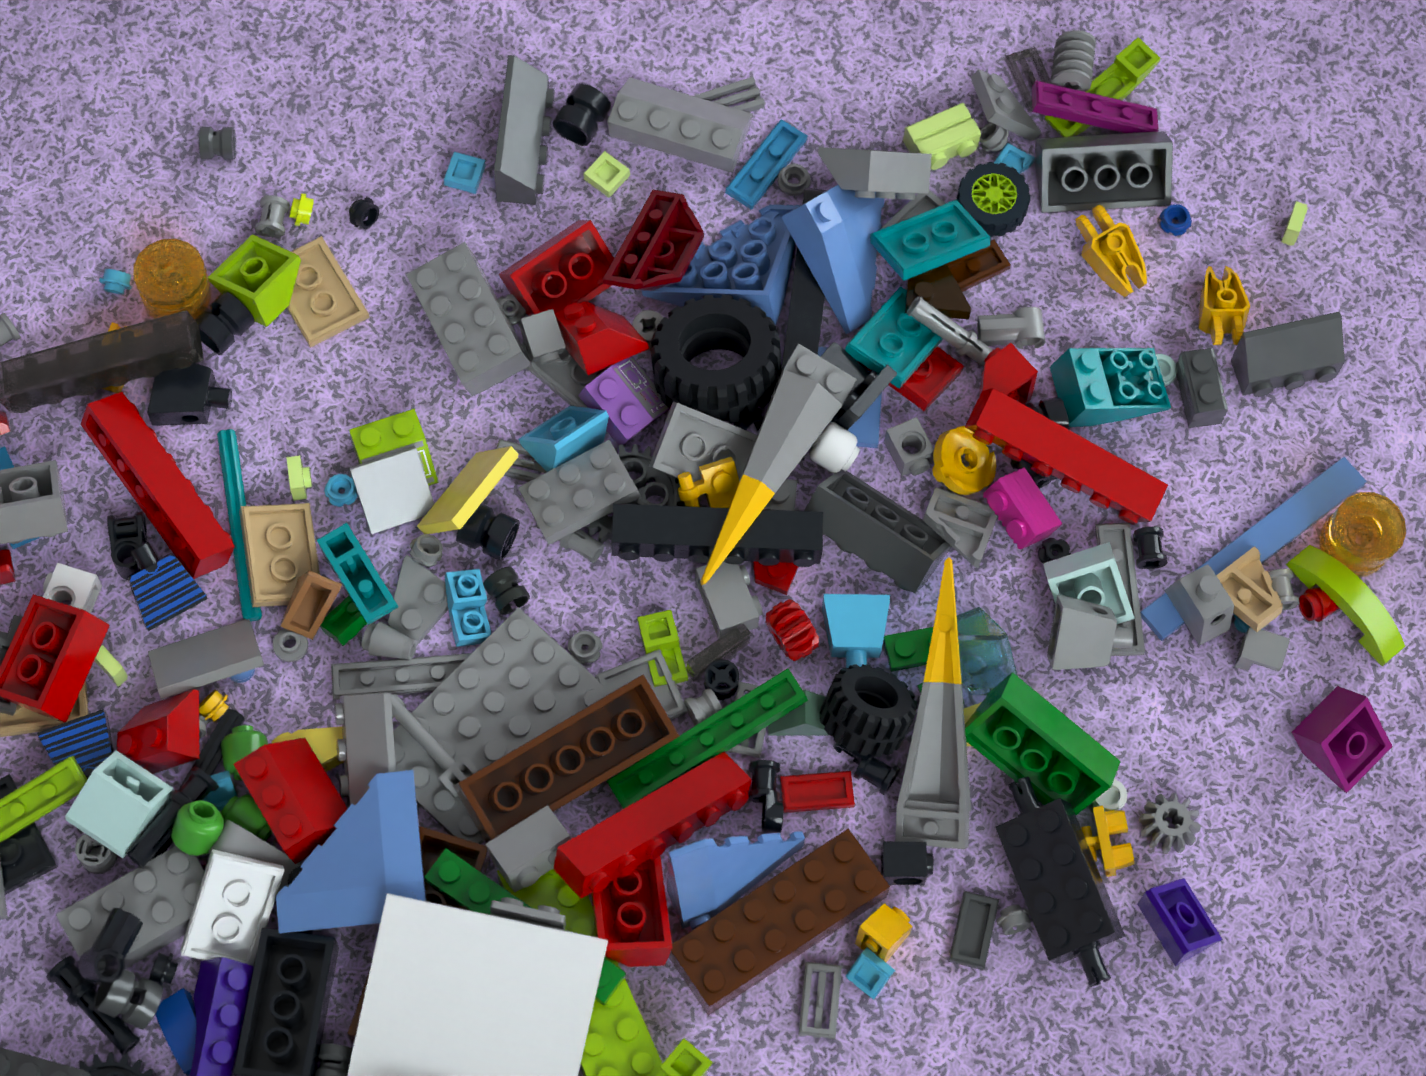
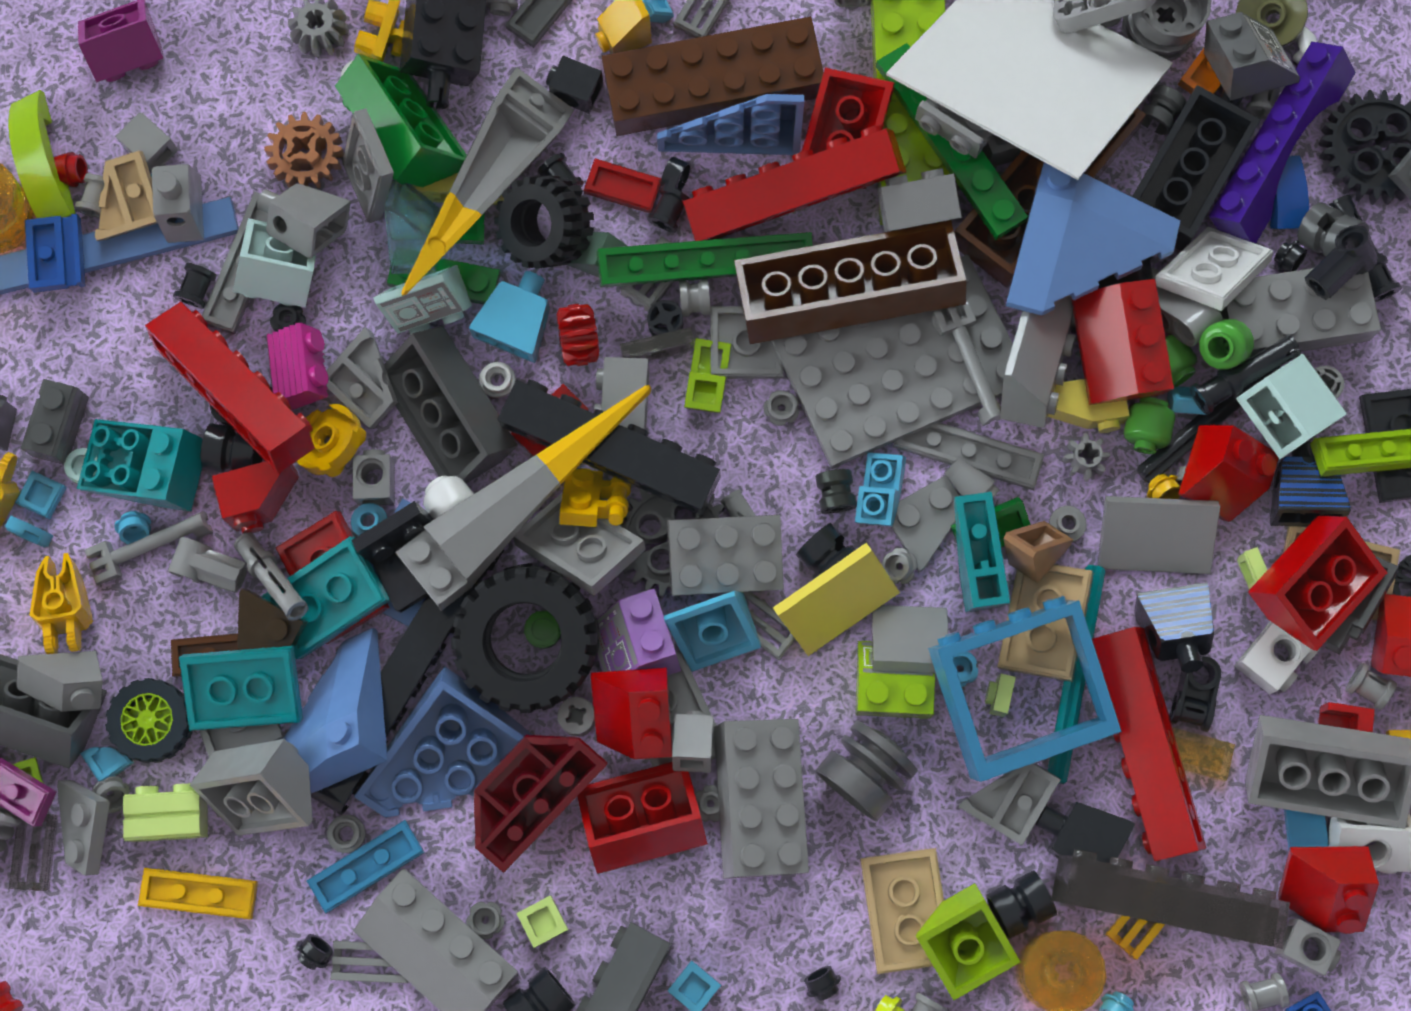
camera: 150 degrees left, 10 degrees up
(105, 500) = (1204, 754): none -> clear yellow tile
(251, 436) = (987, 632): none -> dark azure window
(257, 401) = (1013, 801): none -> light grey wing
(299, 714) = (1079, 463): none -> light grey gear
(389, 368) = (867, 770): none -> flat silver wheel
(649, 153) = (495, 922): none -> light grey plate
(775, 86) = (314, 952): none -> black plate
(850, 565) = (489, 372): none -> white plate
(886, 417) = (364, 510): none -> medium azure plate
(888, 98) = (198, 893): none -> yellow tile
(919, 608) = (432, 298): none -> light aqua slope
(1048, 689) = (367, 166): none -> light grey tile
(1074, 193) = (62, 679): none -> light grey slope
(1089, 335) = (133, 526): none -> medium azure plate
(1092, 308) = (112, 558): none -> light grey hinge
(1132, 707) = (310, 136): none -> nougat gear
(1174, 302) = (35, 534): none -> medium azure tile
(1181, 334) = (40, 495): none -> medium azure tile
(1283, 521) = (54, 253): none -> blue plate

